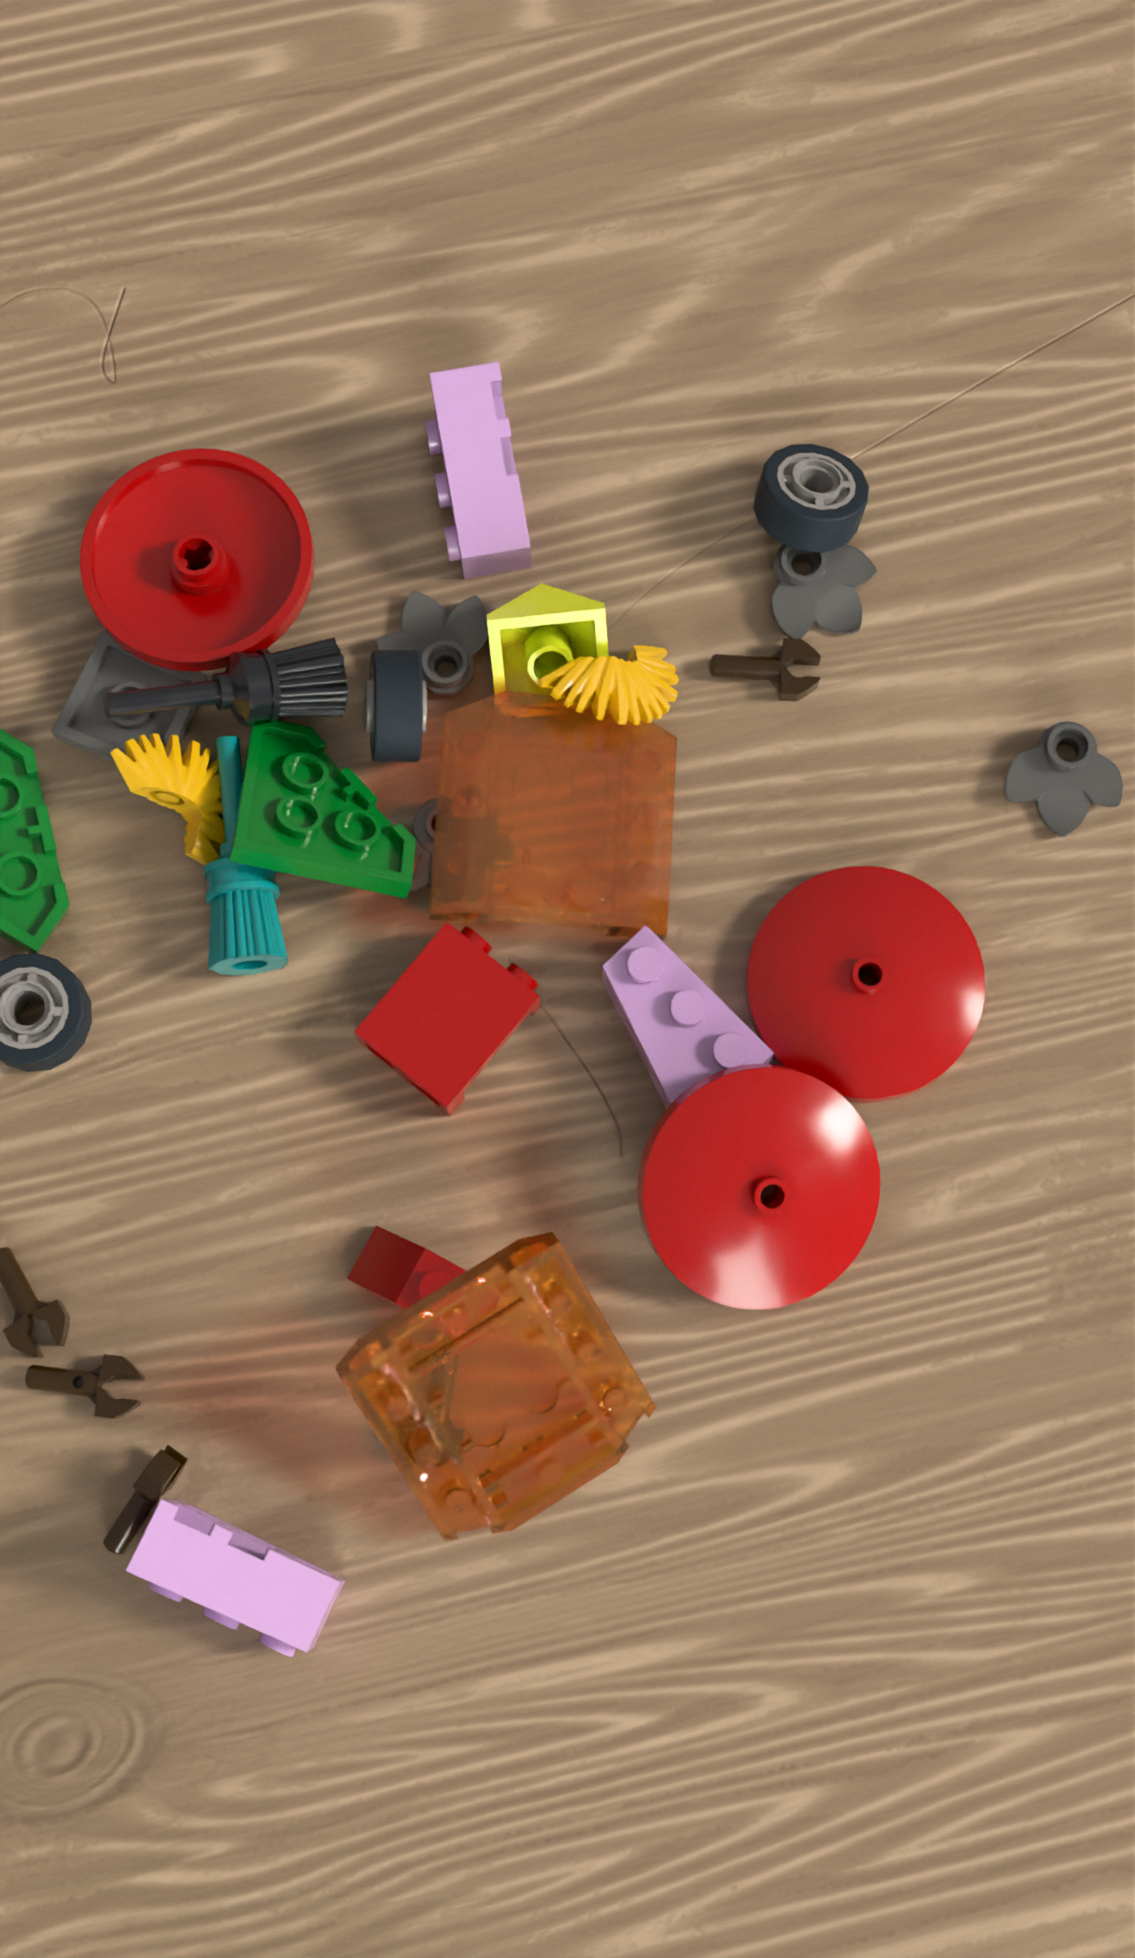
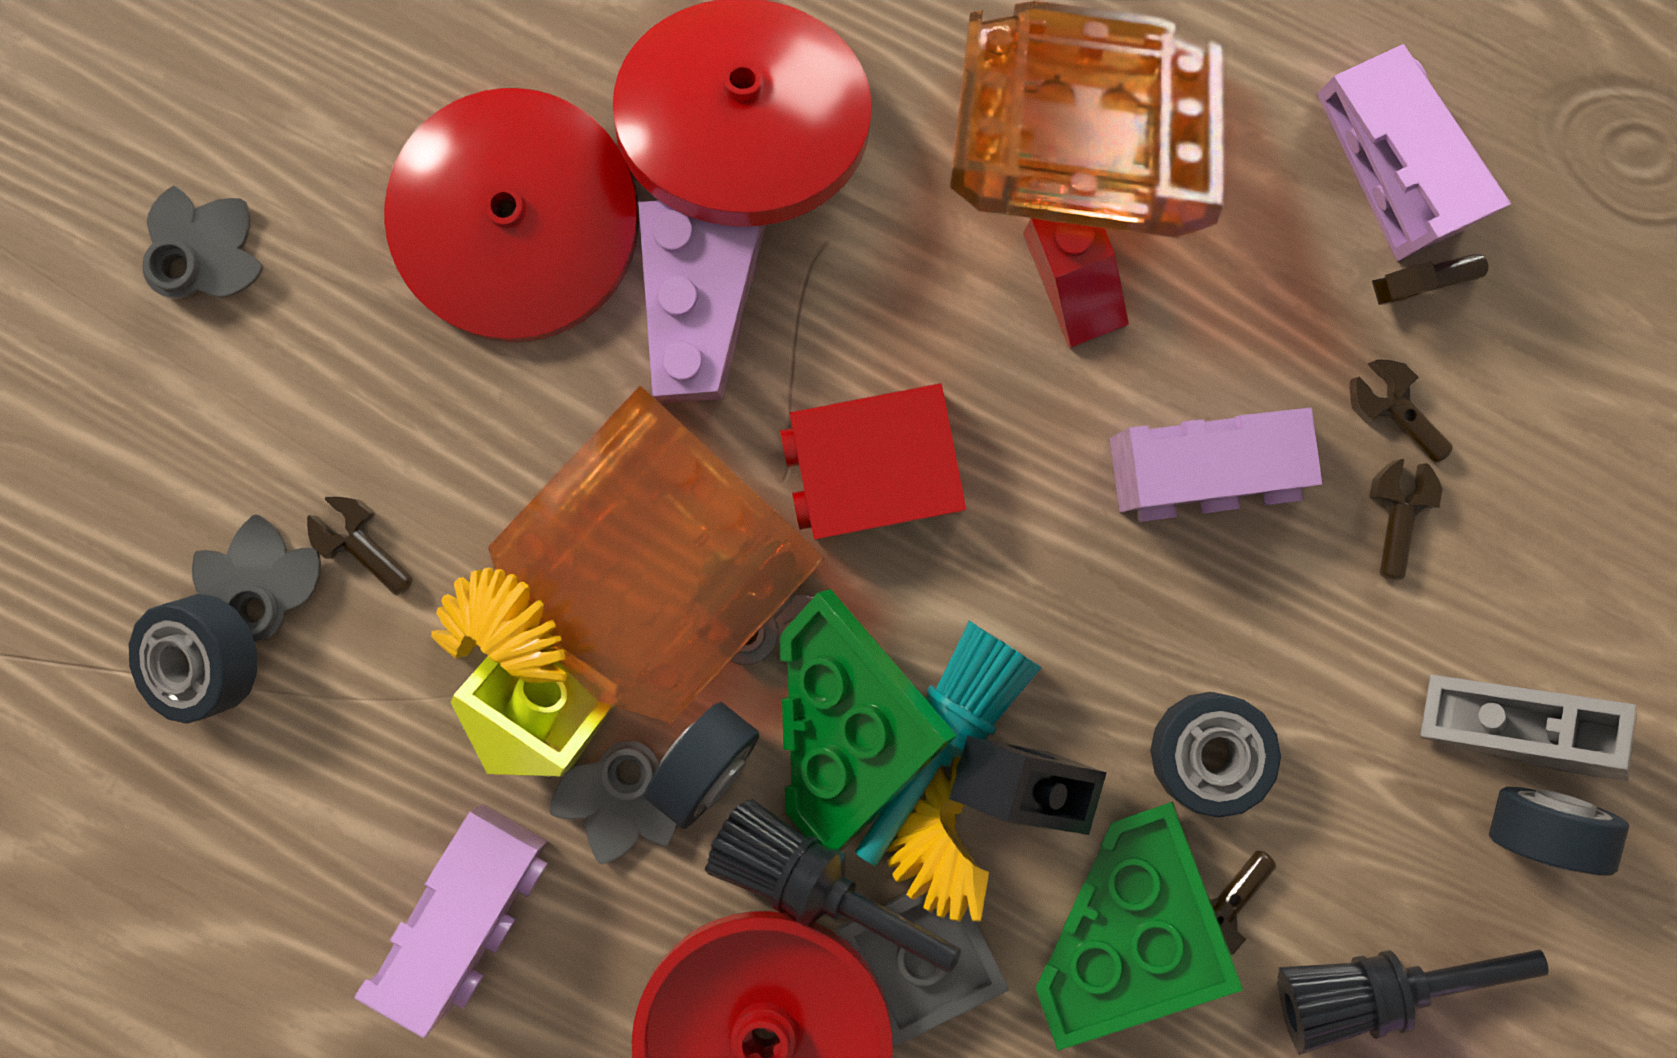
camera: 140 degrees left, 10 degrees up
(150, 873) = (1027, 786): none -> black brick
(197, 1220) = (1215, 463): none -> lavender wedge

